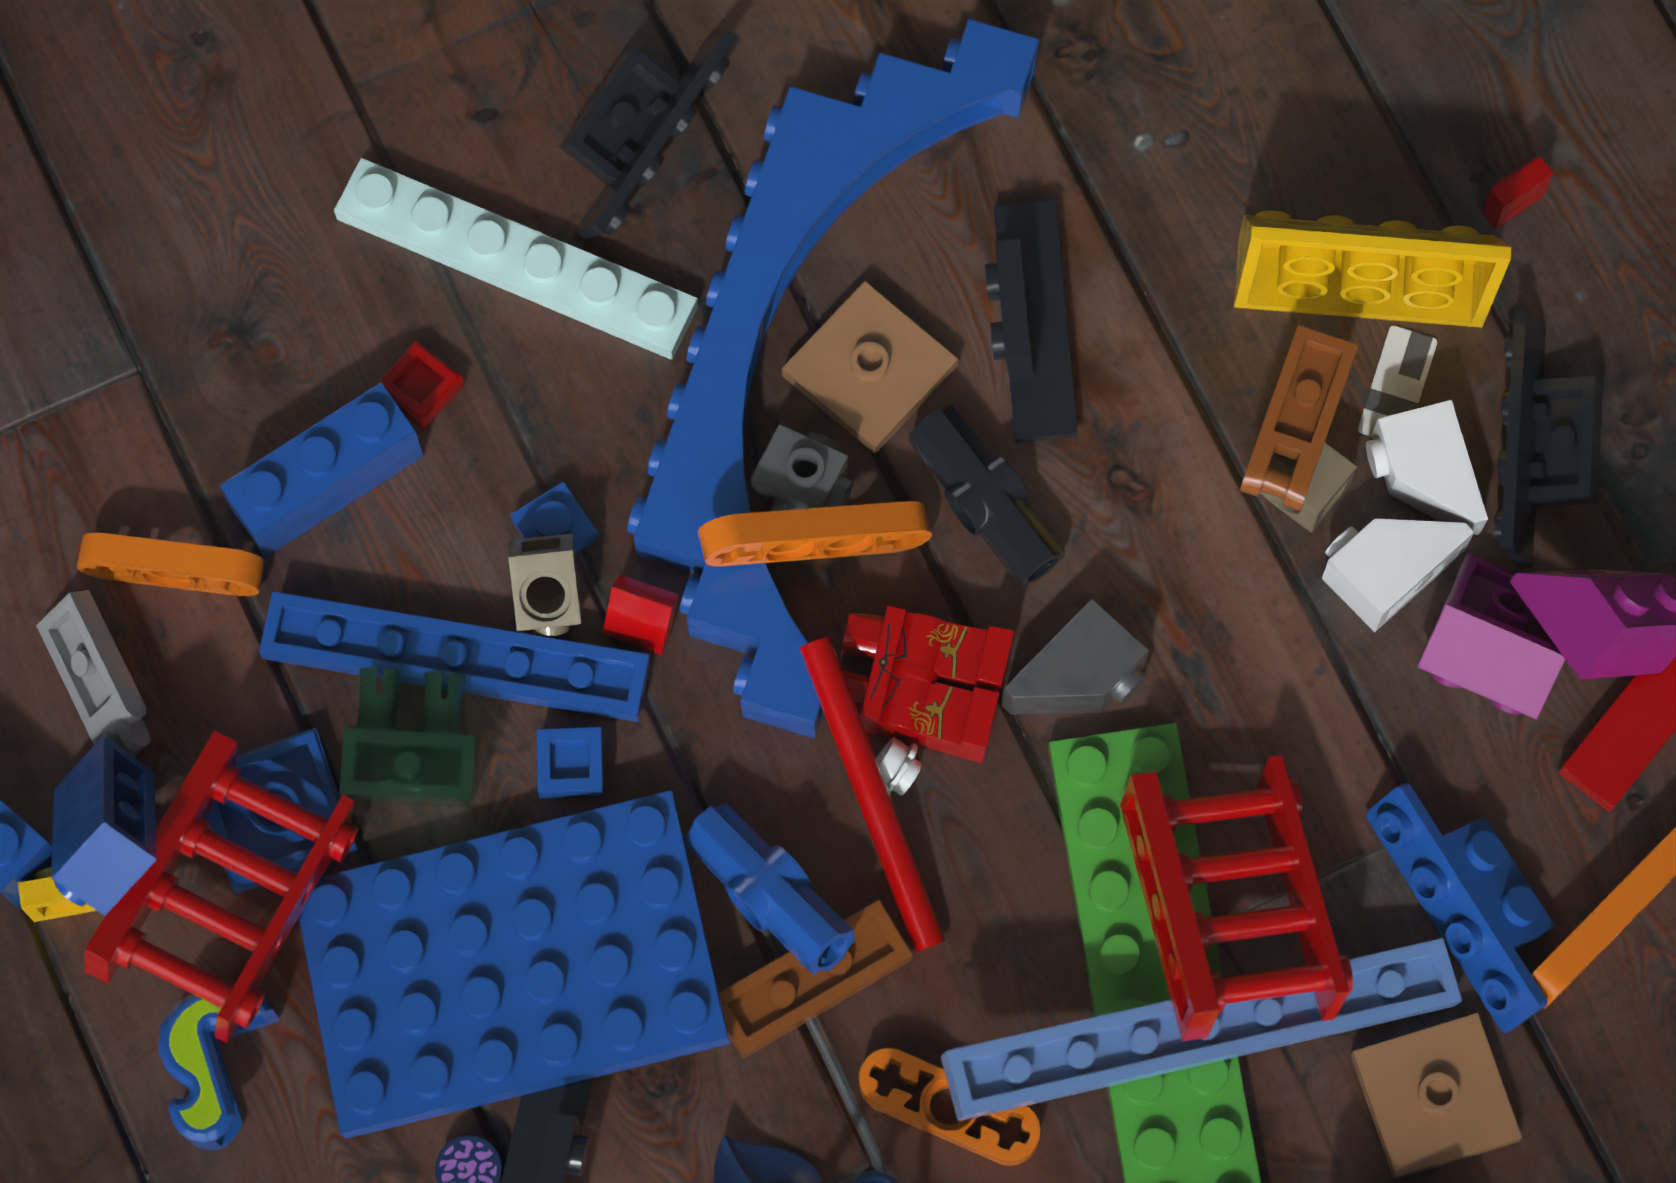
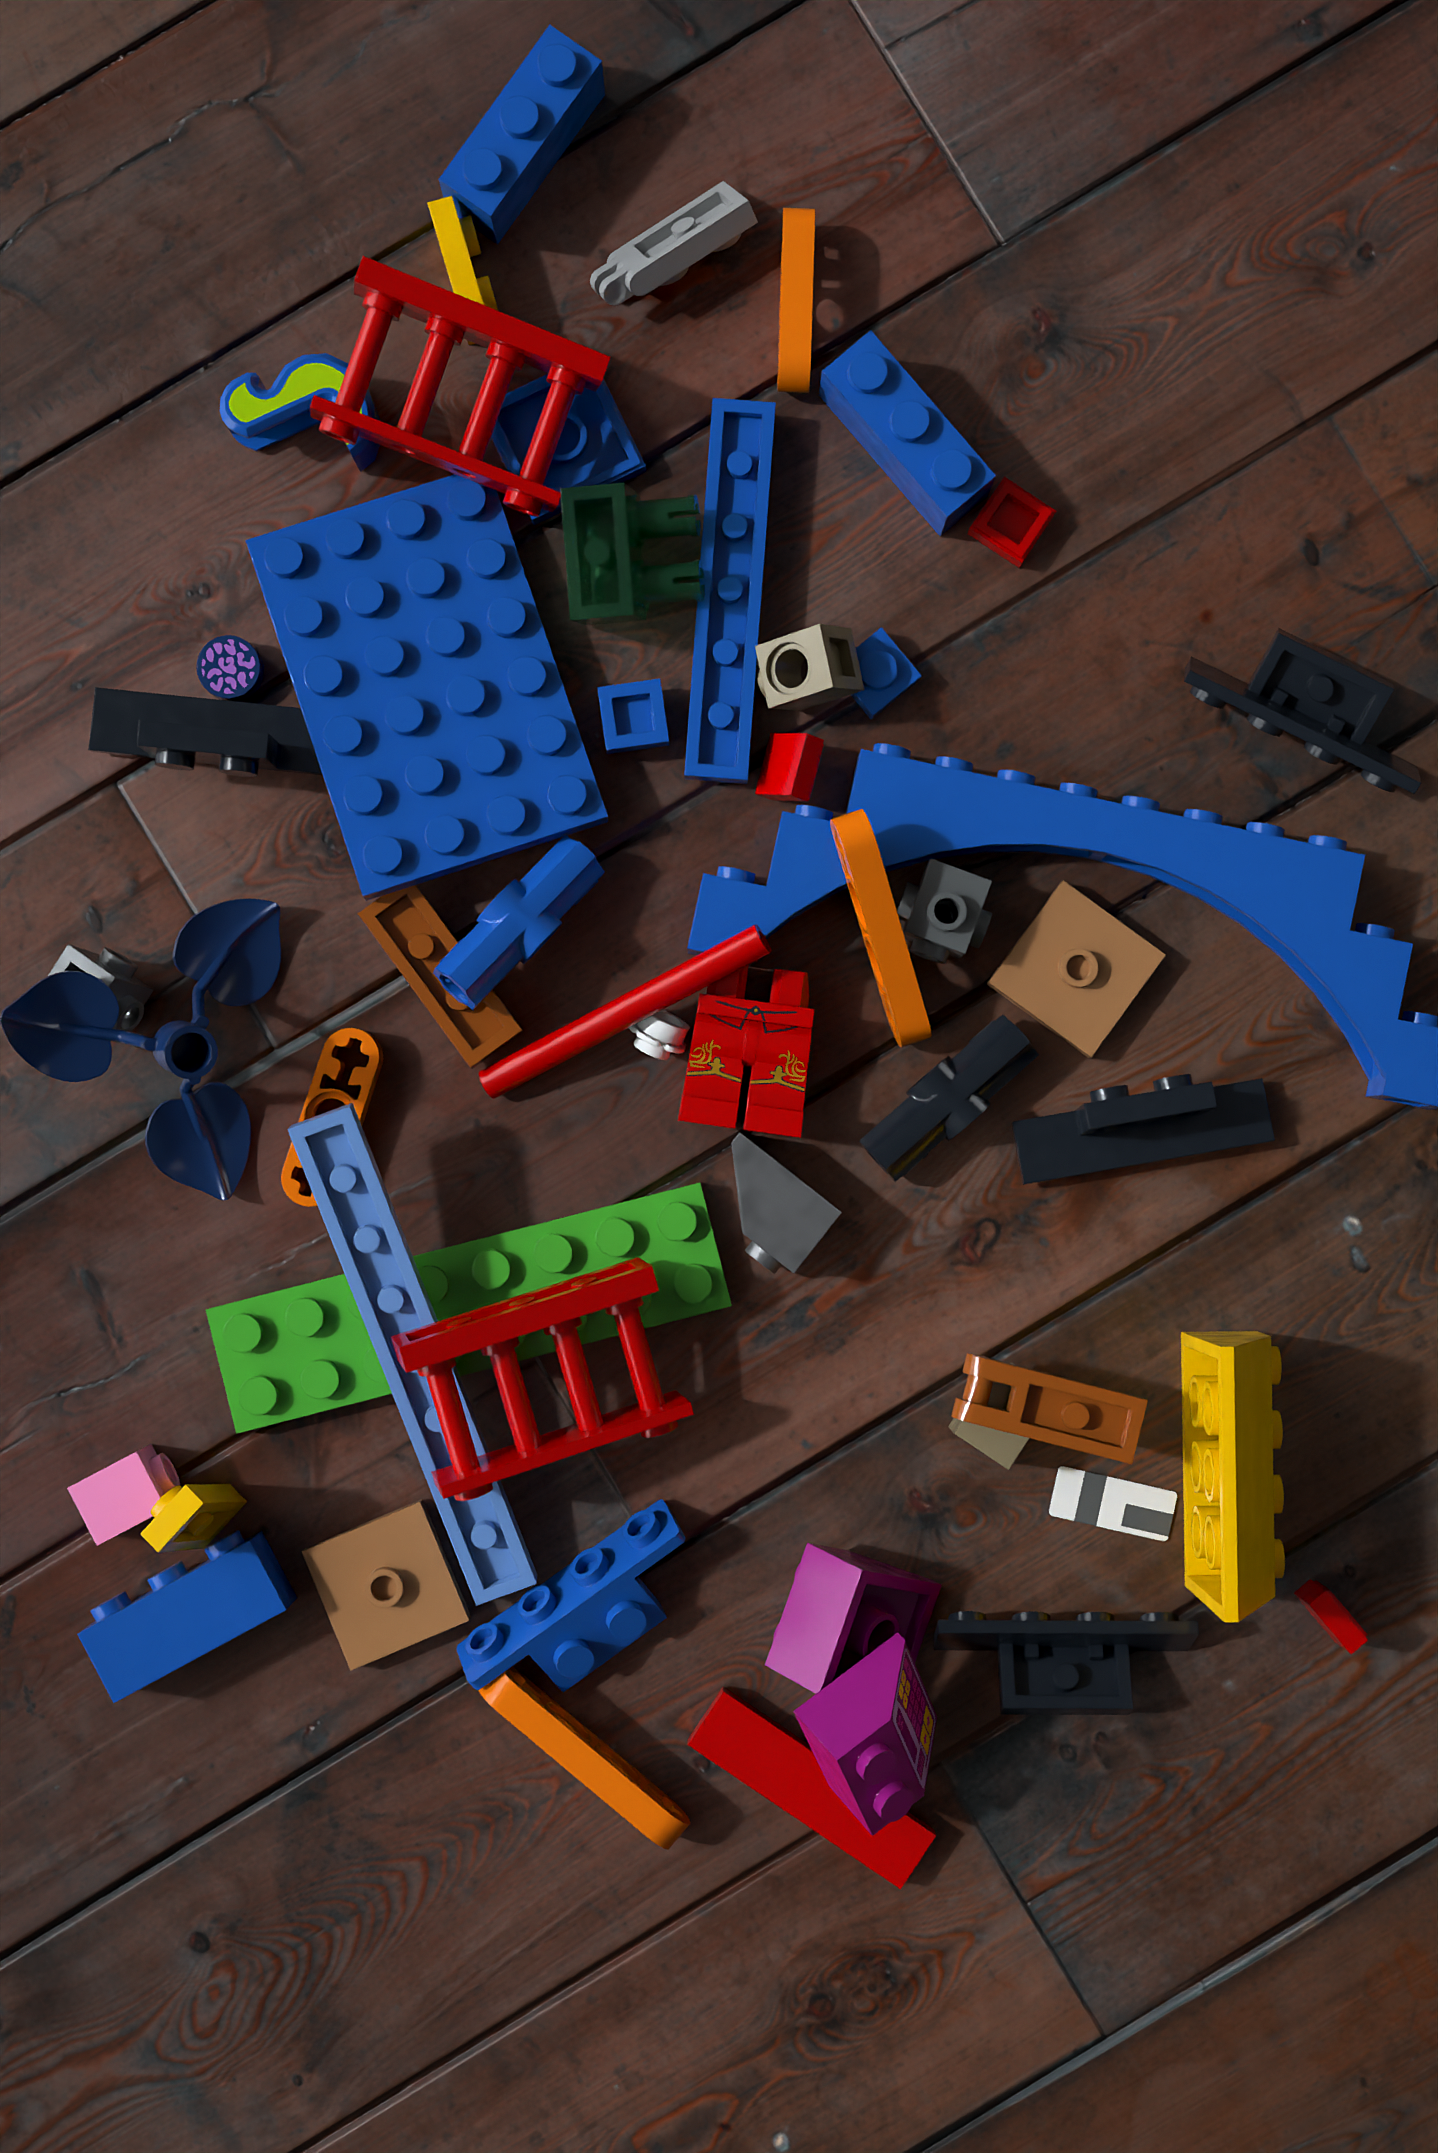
camera: 80 degrees right, 15 degrees up
(103, 827) = (502, 263): blue brick -> none
(516, 258) = (1156, 601): light aqua plate -> none
(1391, 563) = (915, 1509): white slope -> none
(1428, 464) = (1023, 1542): white slope -> none

